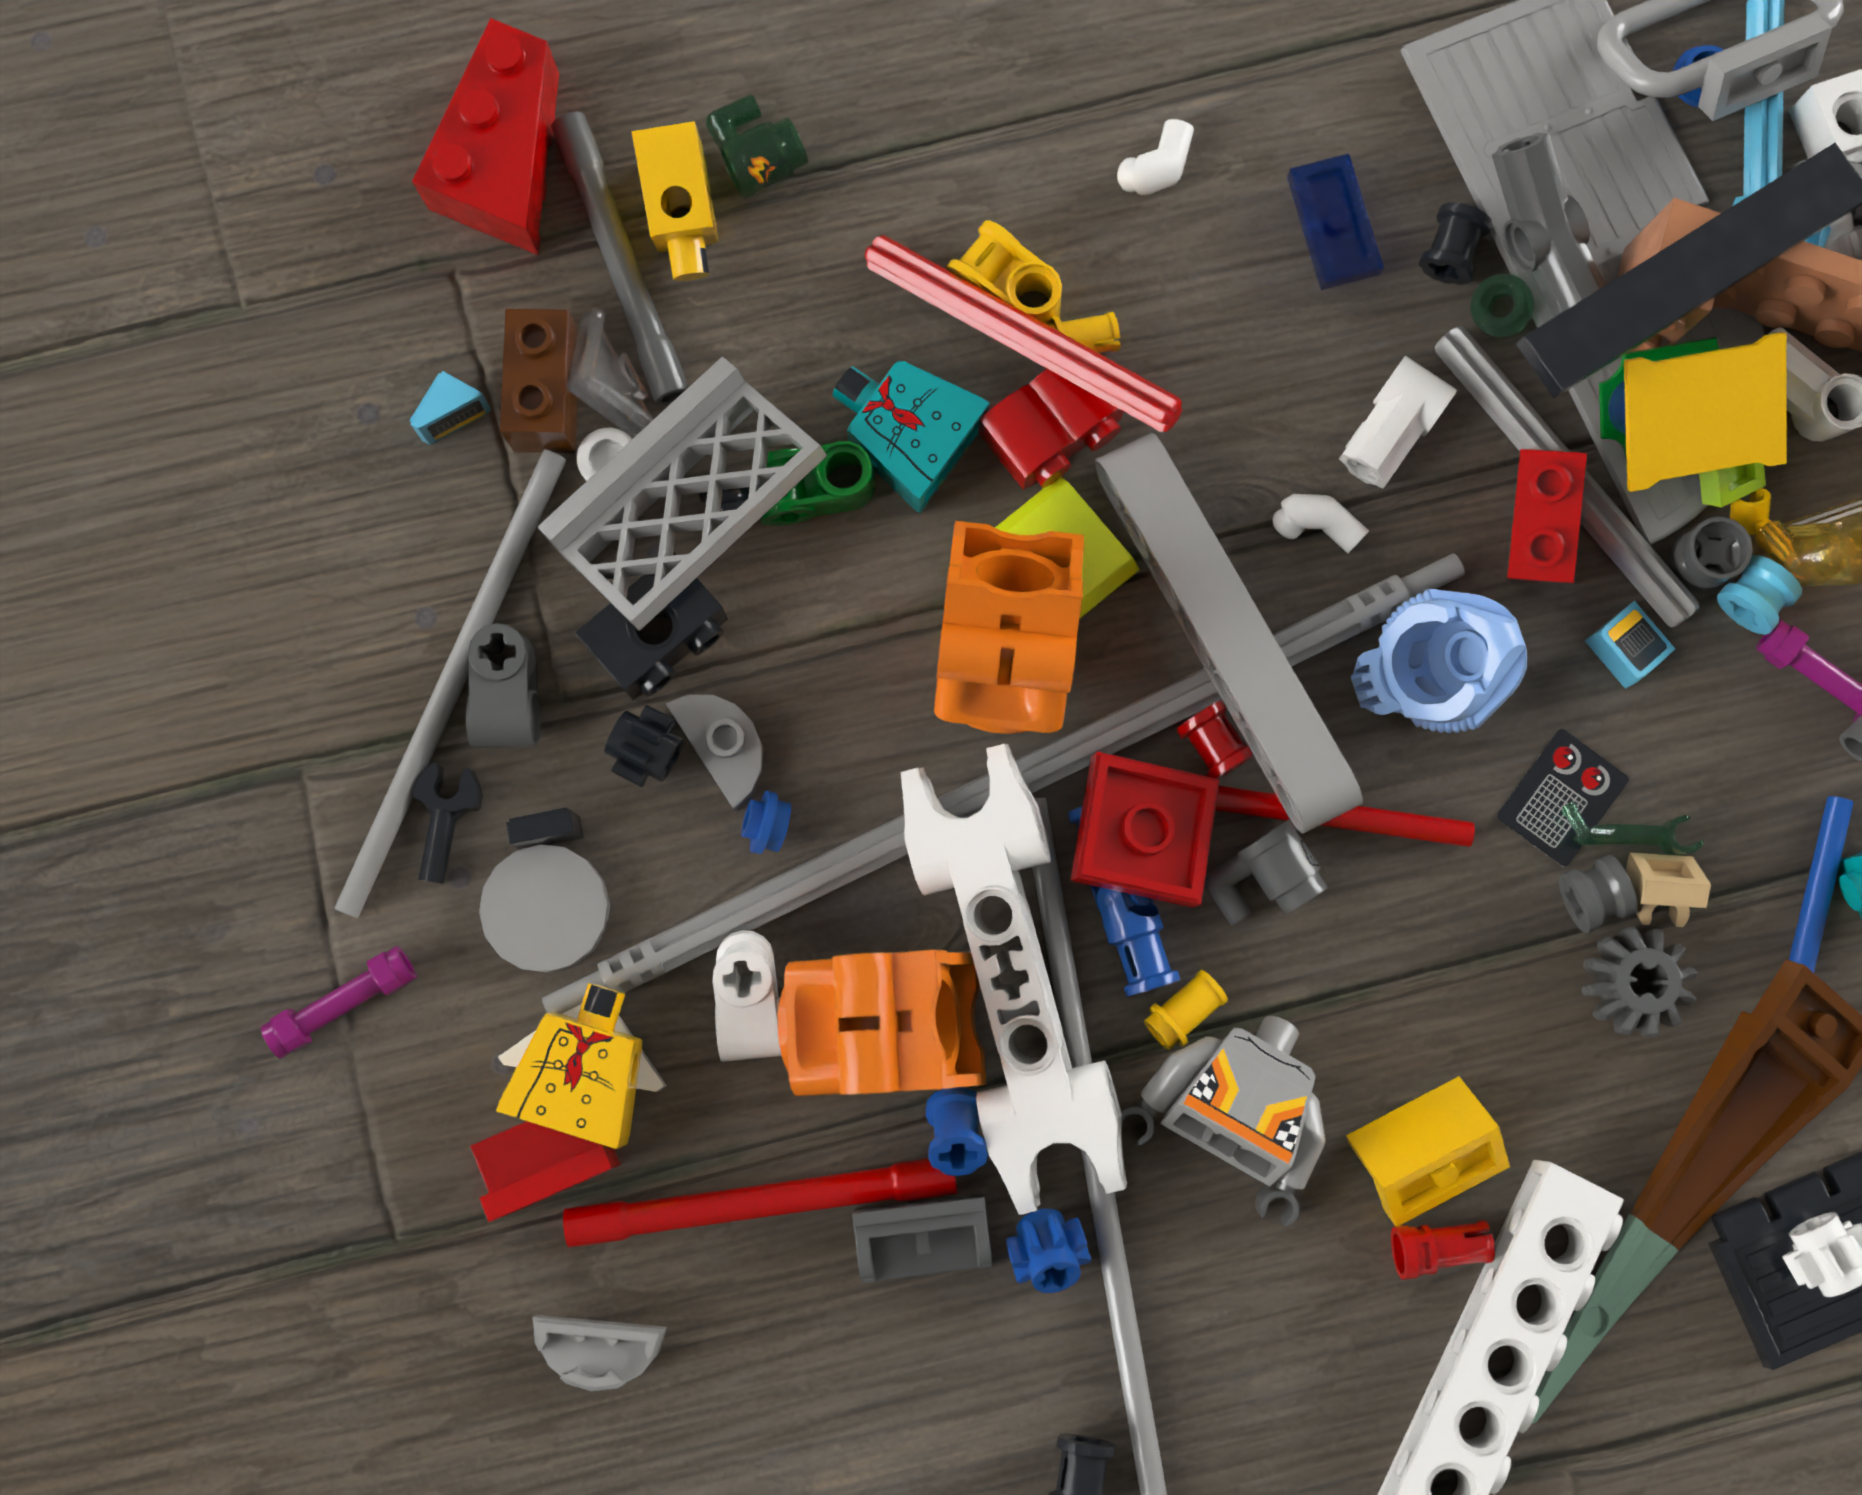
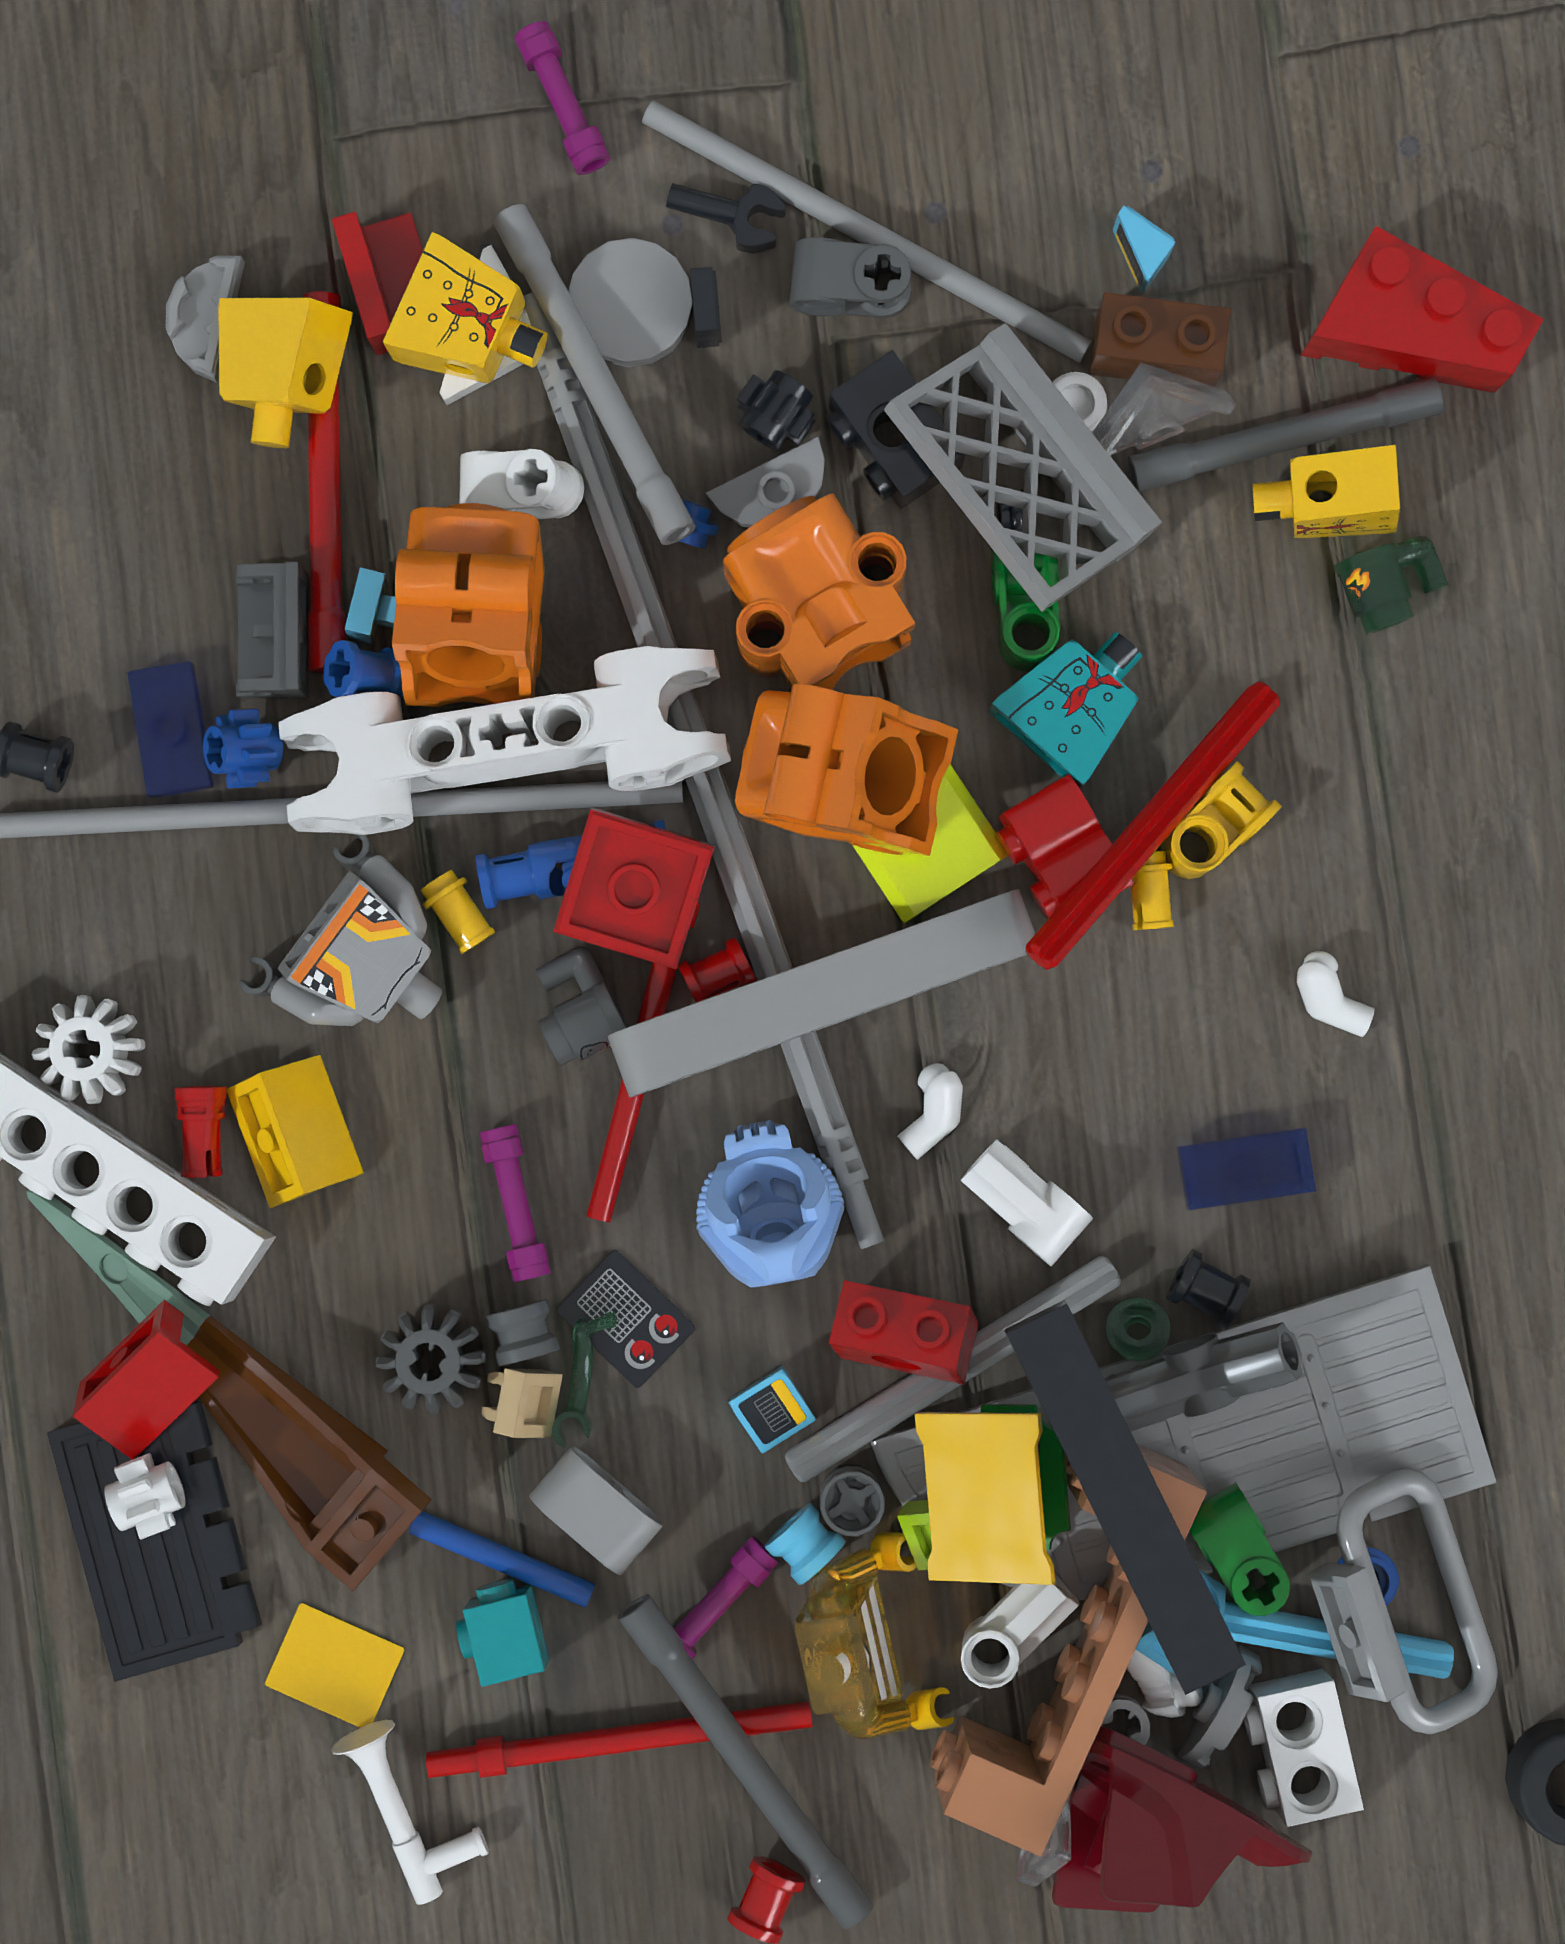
camera: 100 degrees right, 5 degrees up
(512, 1008) = (653, 487): none -> light grey piece
(641, 1260) = (280, 359): none -> yellow torso
(824, 685) = (805, 582): none -> orange piece
(886, 1134) = (369, 606): none -> medium azure tile
(1034, 1332) = (170, 729): none -> clear blue plate
(1397, 1387) = (79, 1073): none -> white gear
(1517, 900) = (528, 1257): none -> magenta bar
(1709, 176) = (1236, 1544): none -> green piece
(1711, 1274) = (143, 1383): none -> red panel
(1760, 801) = (596, 1510): none -> light grey beam

